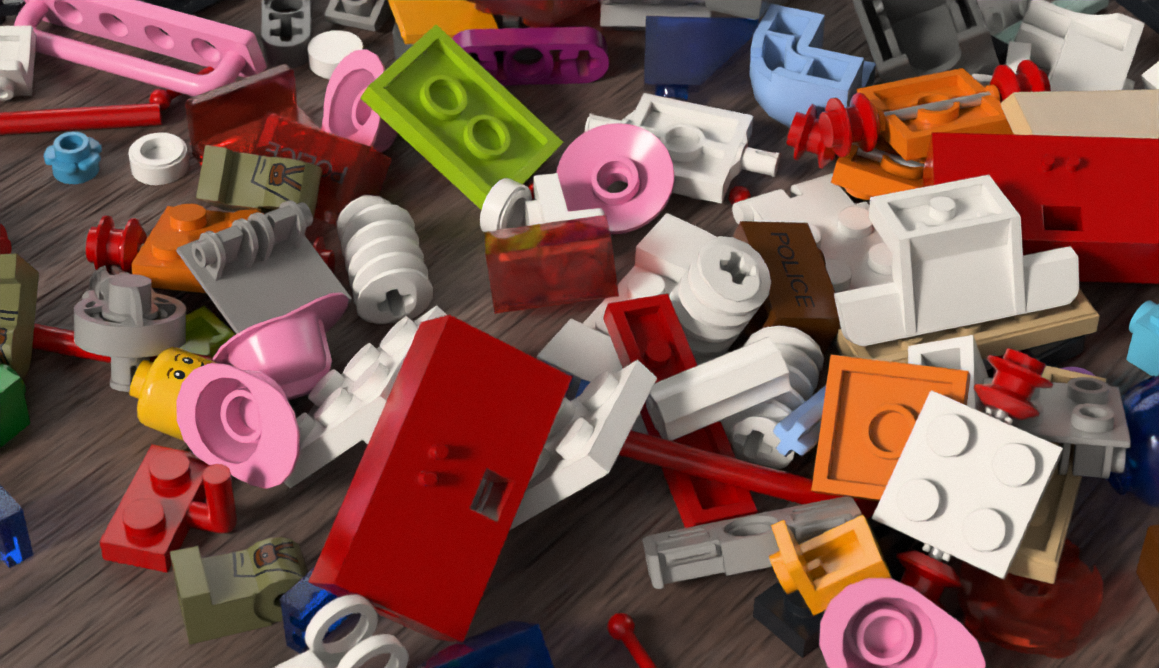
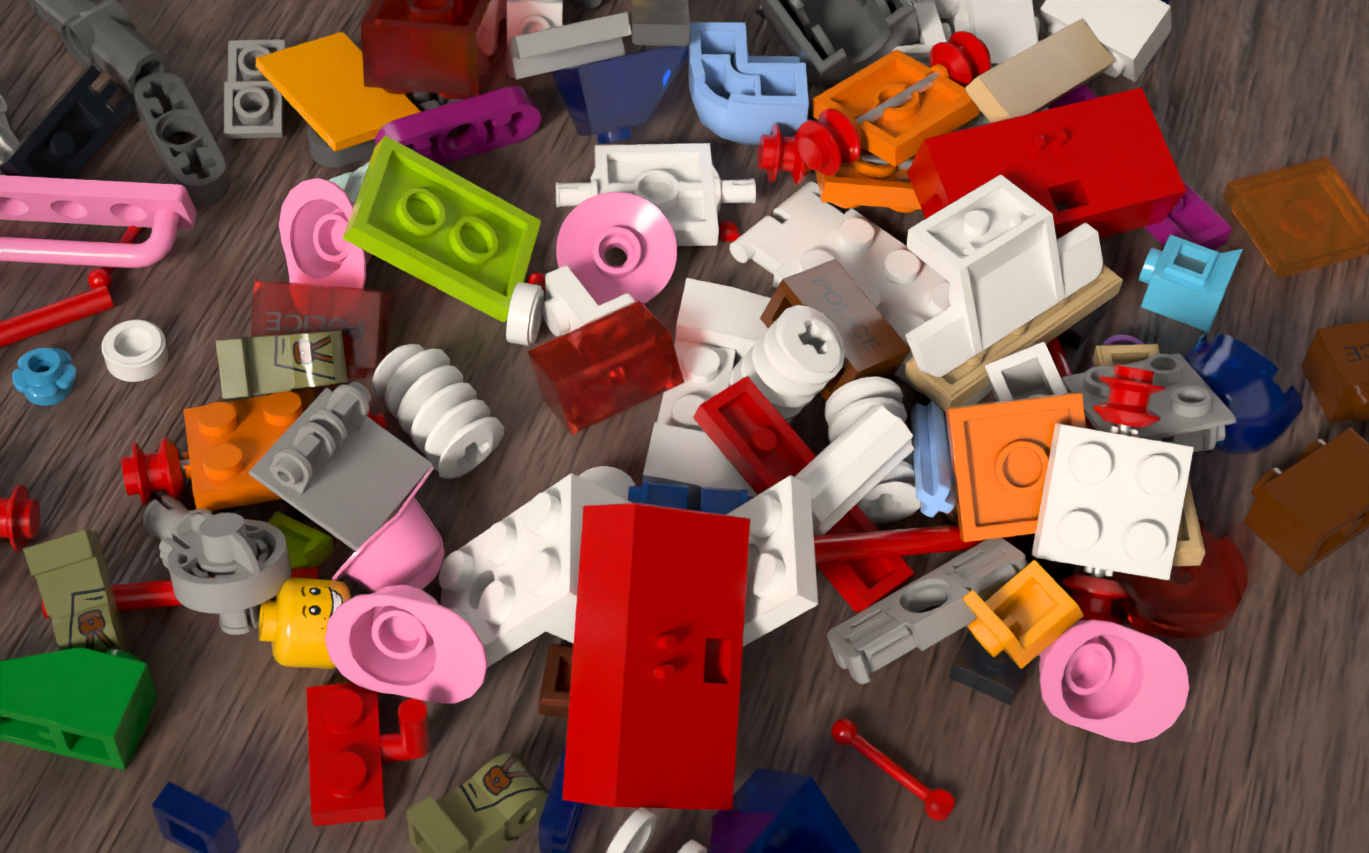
camera: 25 degrees left, 10 degrees up
(235, 112) = (213, 289): clear red panel -> none
(329, 49) = (258, 177): white tile -> none

